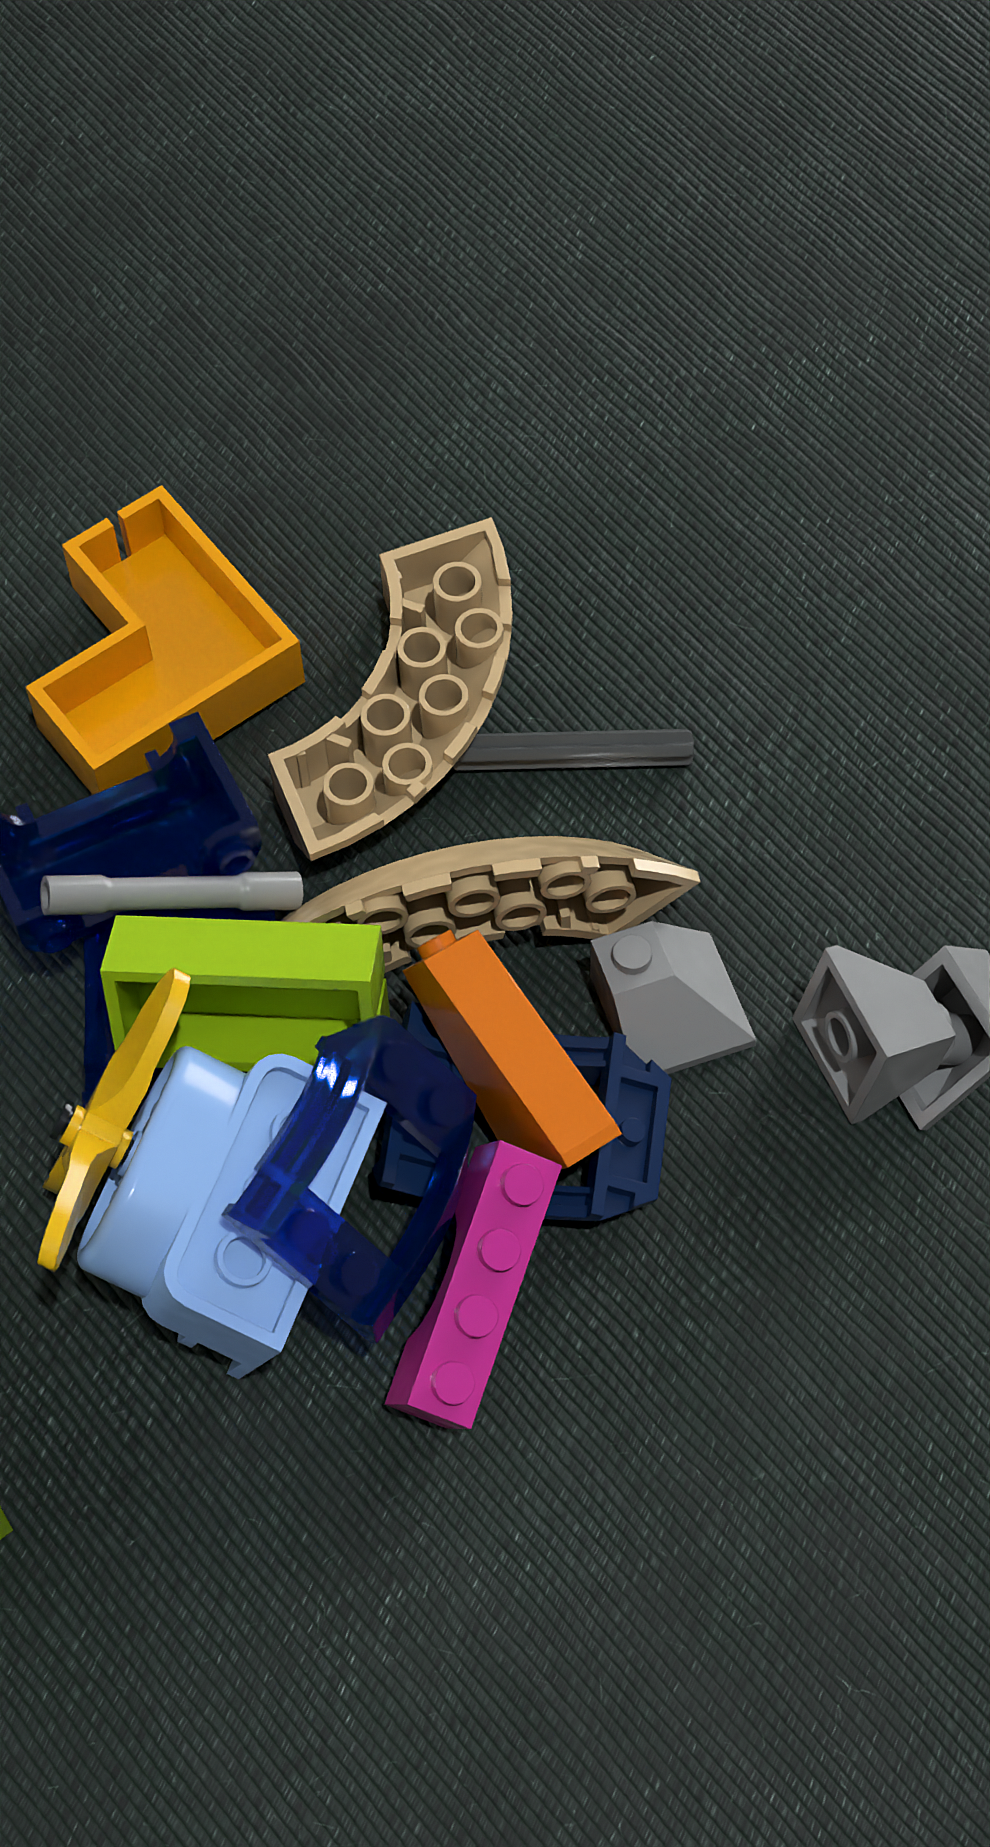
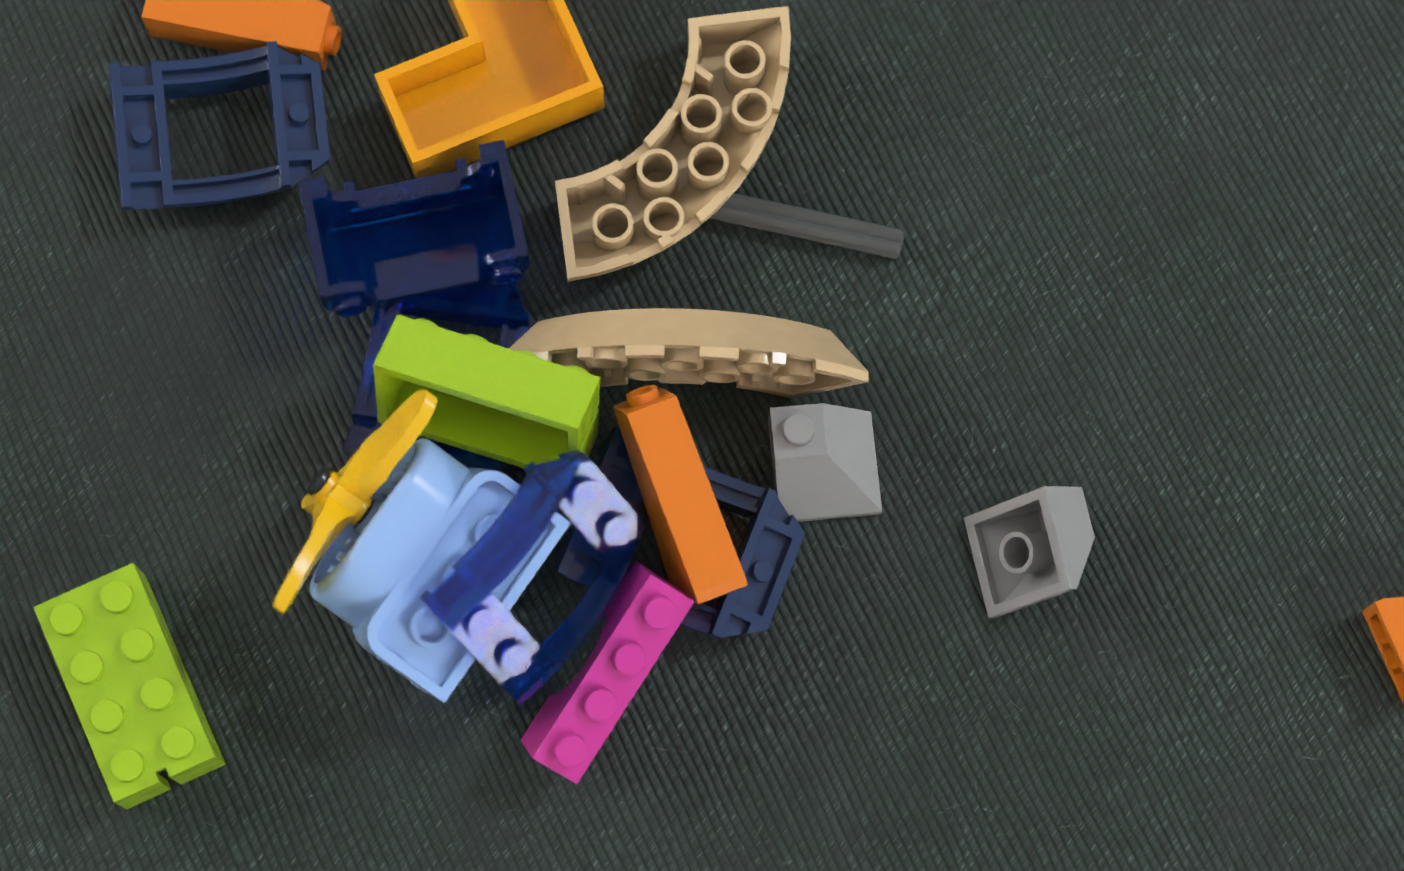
camera: 10 degrees right, 15 degrees up
(101, 894) = (391, 286): light grey piece -> none
(870, 1030) = (970, 536): light grey slope -> none

